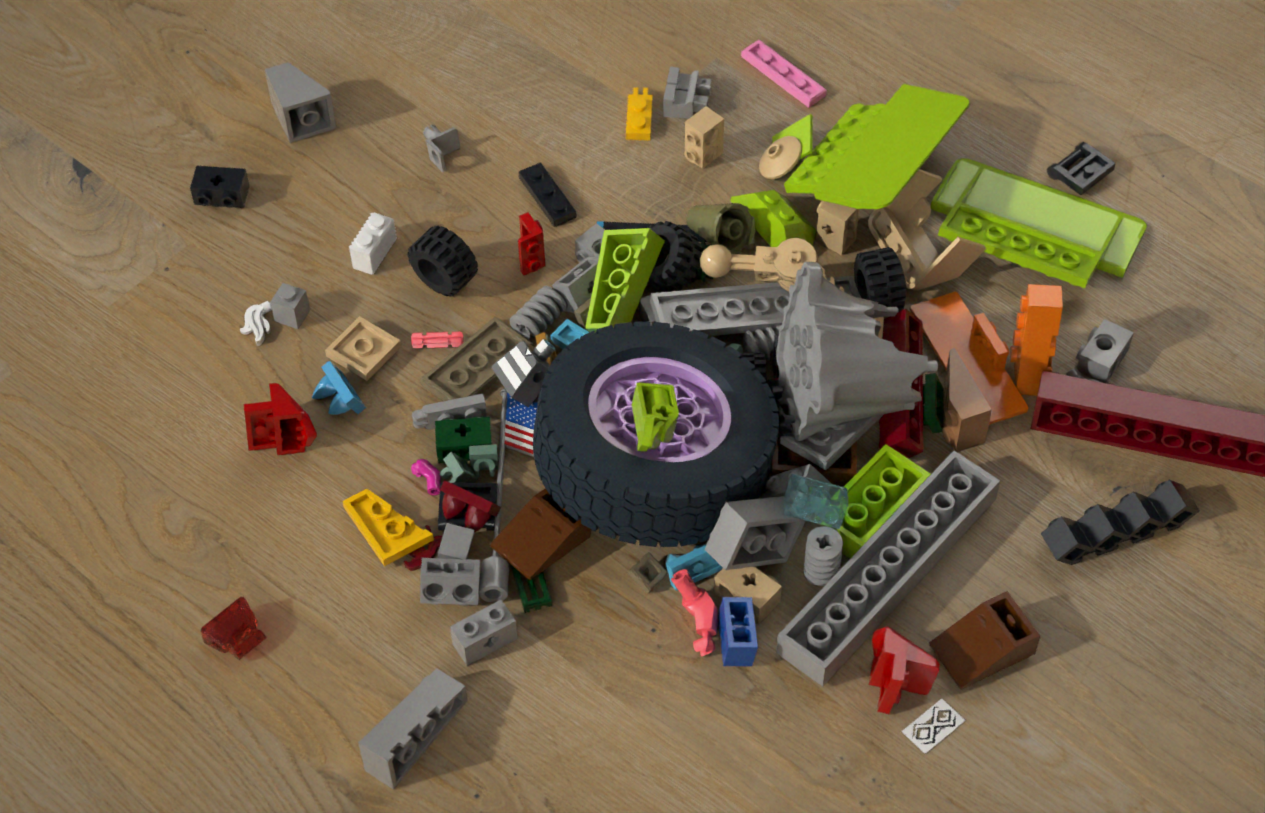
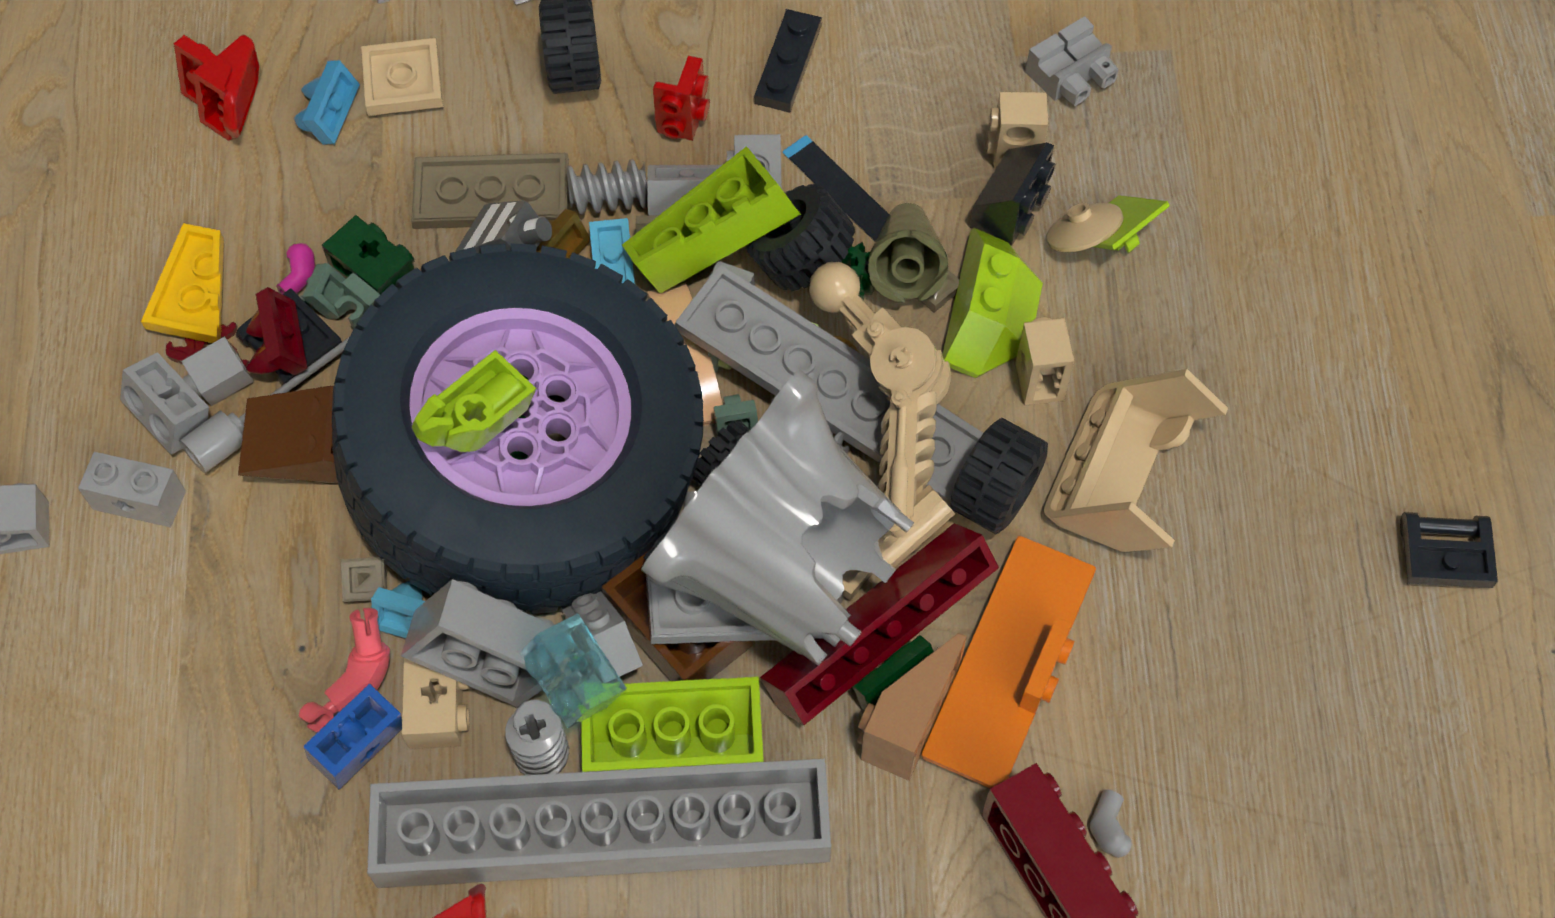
camera: 45 degrees right, 10 degrees up
(437, 339) = (483, 129): coral axle -> none
(452, 409) = (399, 223): light grey hinge -> none
(535, 602) = (250, 503): dark green tile -> none
(639, 115) = (997, 48): yellow hinge -> none
(732, 164) = (1014, 191): none -> black slope
(784, 73) = (1223, 130): bright pink tile -> none
(878, 148) = (1191, 311): lime slope -> none
(1035, 223) = (1299, 572): lime slope -> none
(1036, 337) = (1083, 714): orange wedge -> none
(1104, 351) = (1162, 823): light grey brick -> none

